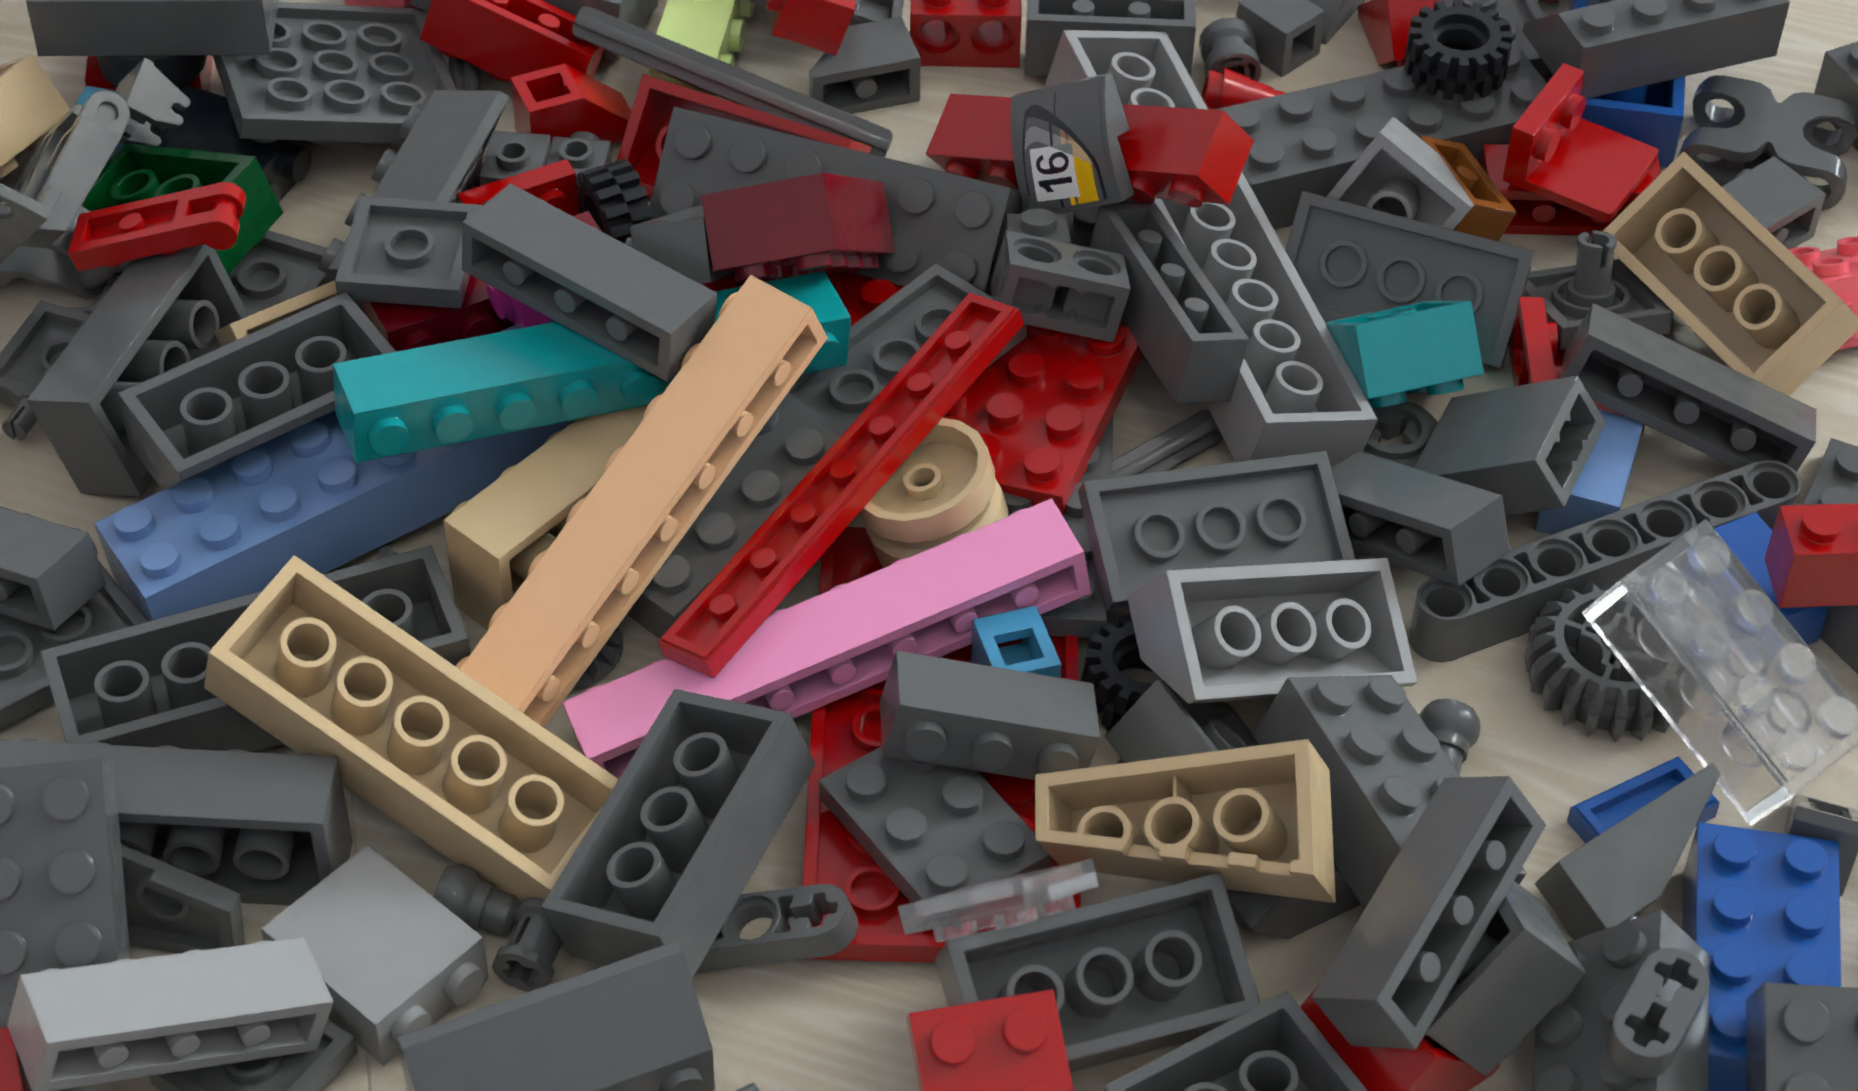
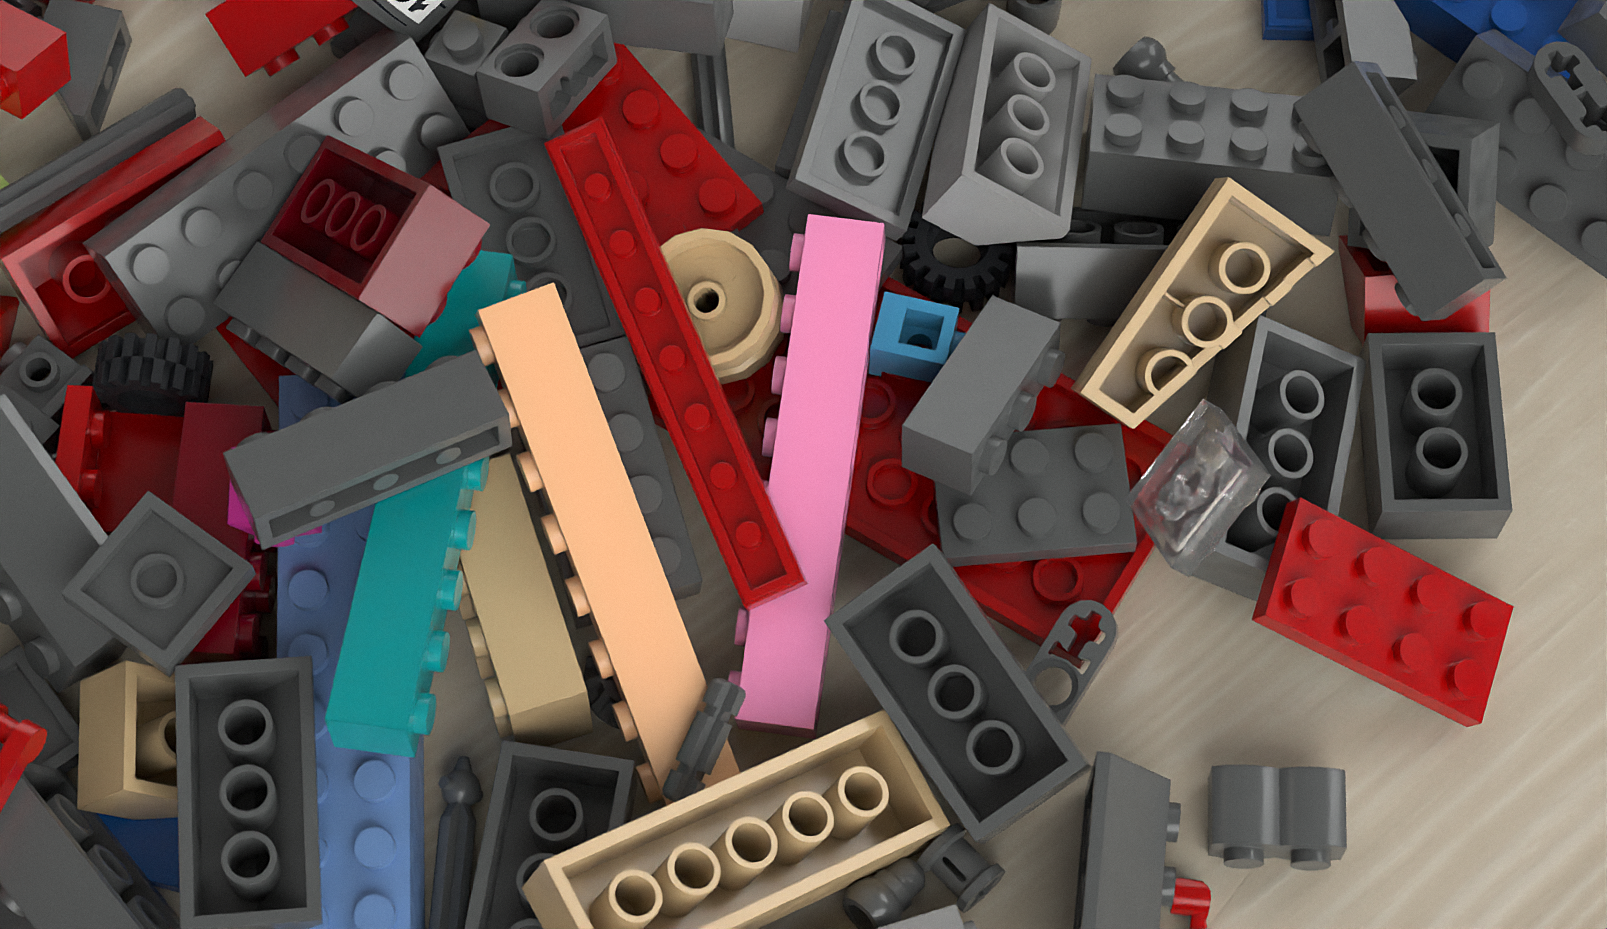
camera: 60 degrees left, 20 degrees up
(521, 664) = (704, 739): none -> dark grey axle

